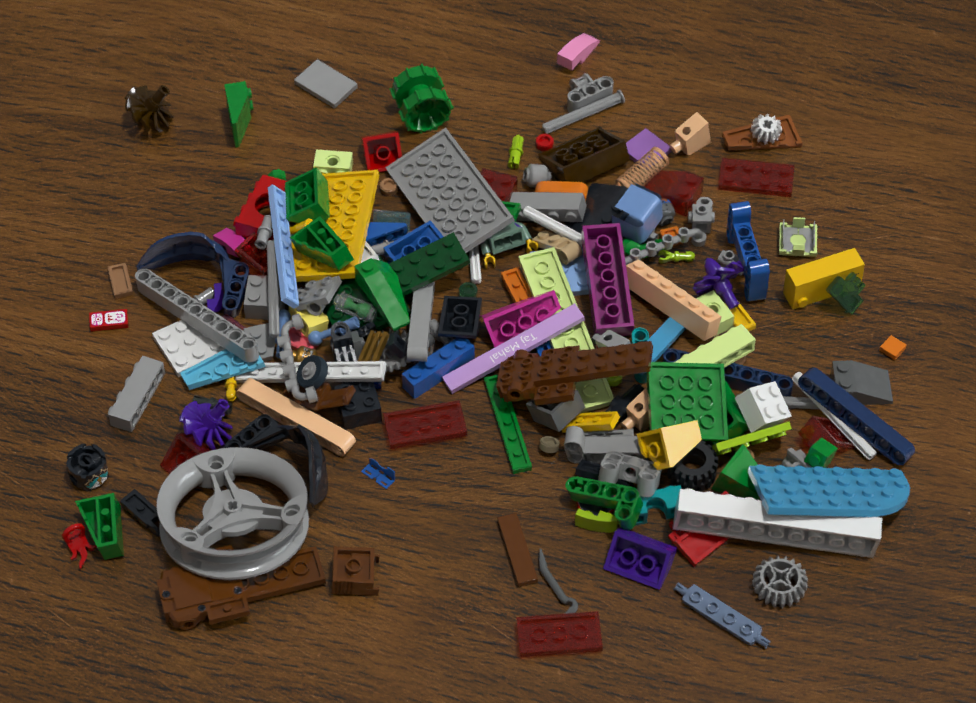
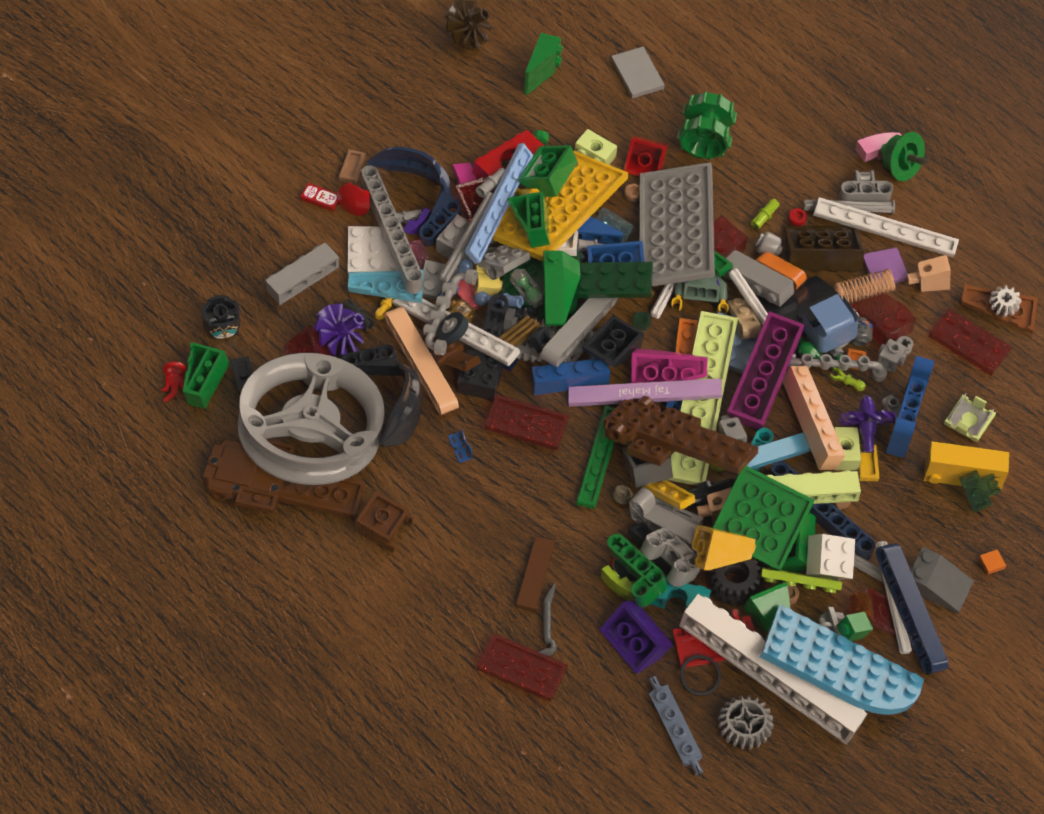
camera: 25 degrees right, 5 degrees up
(143, 306) = (353, 199): none -> red dish
(604, 48) = (904, 155): none -> green piece
(625, 115) = (886, 227): none -> white tile
(722, 547) = (715, 665): none -> black piece

